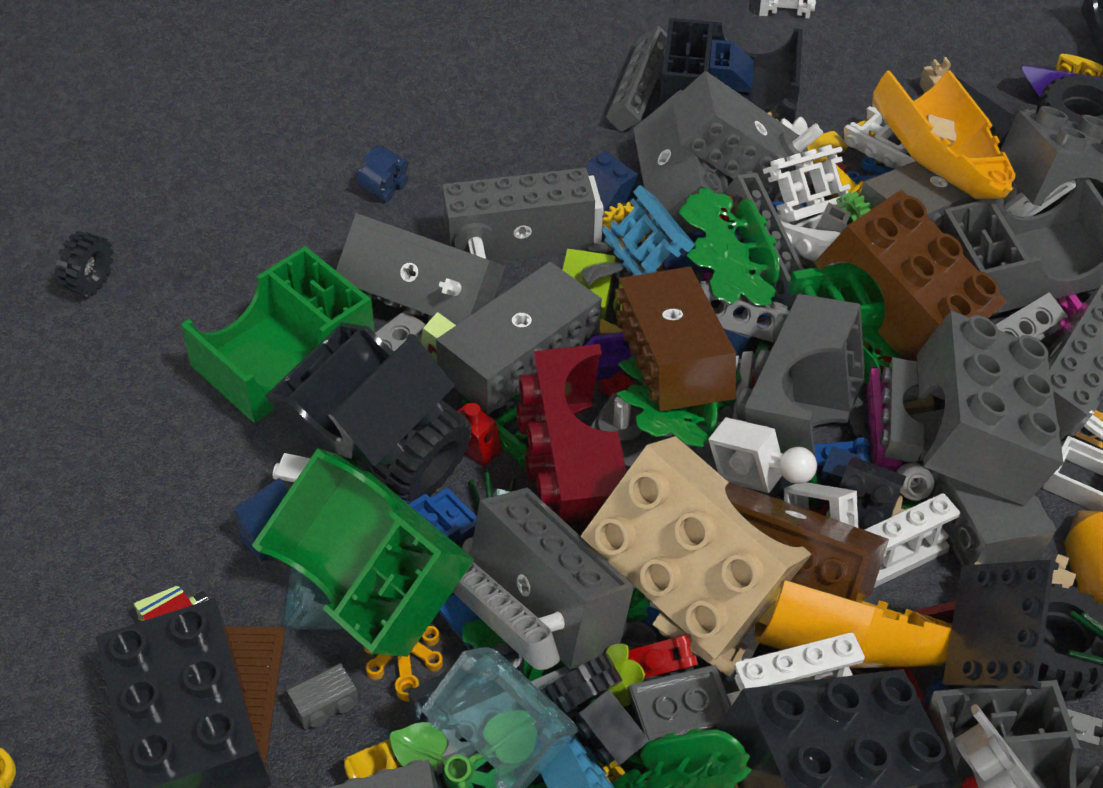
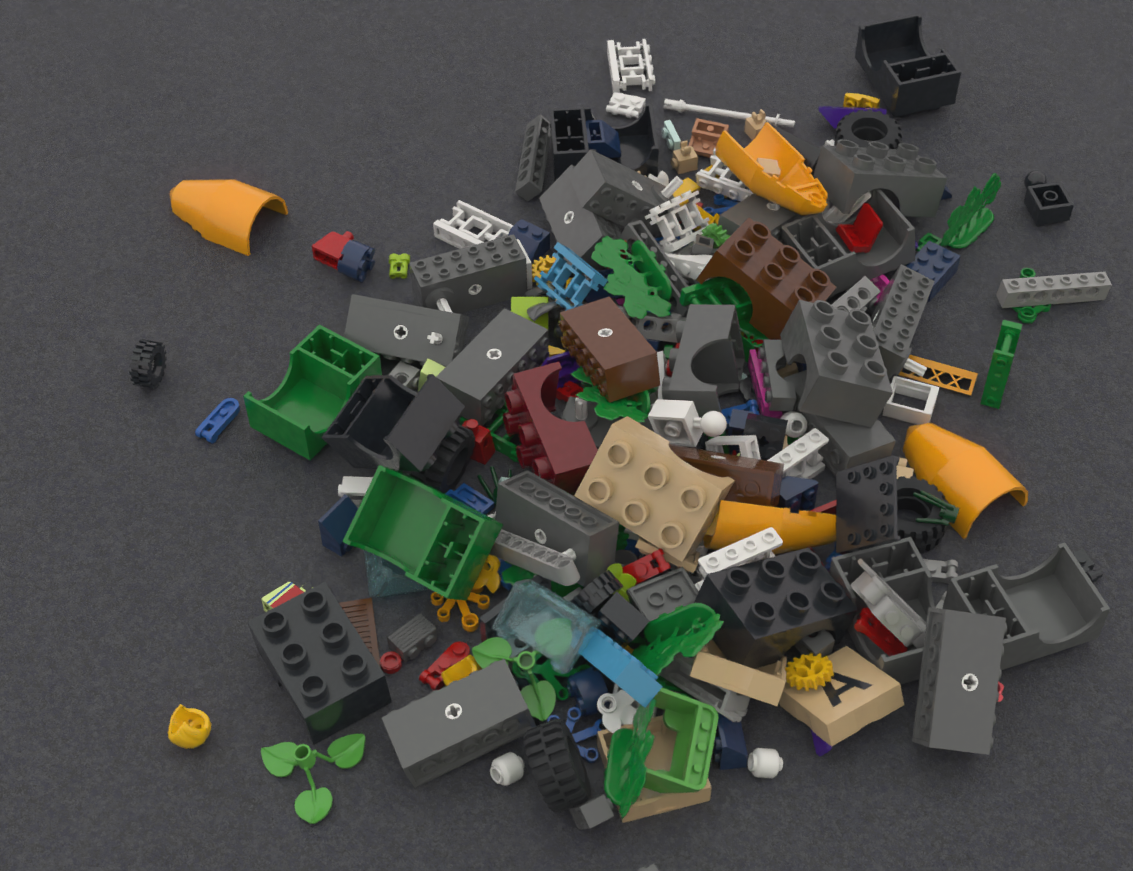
camera: 10 degrees left, 0 degrees up
(153, 350) = (218, 420): none -> blue plate
(236, 86) = (223, 209): none -> light orange windscreen
(285, 726) = (390, 662): none -> red tile
(350, 153) = (329, 248): none -> red torso
(367, 734) = (450, 657): none -> red plate
(435, 181) = (399, 261): none -> lime piece
(446, 624) = (489, 575): none -> yellow plate
(563, 152) = (462, 237): none -> white fence
(770, 30) = (626, 105): none -> white plate
(823, 78) = (671, 136): none -> light aqua plate
(834, 106) = (684, 159): none -> tan brick
(842, 42) = (681, 106): none -> white bar
(862, 83) = (705, 136): none -> nougat brick
(901, 584) = (798, 494): none -> dark blue slope
(1057, 233) = (863, 232): none -> red bracket

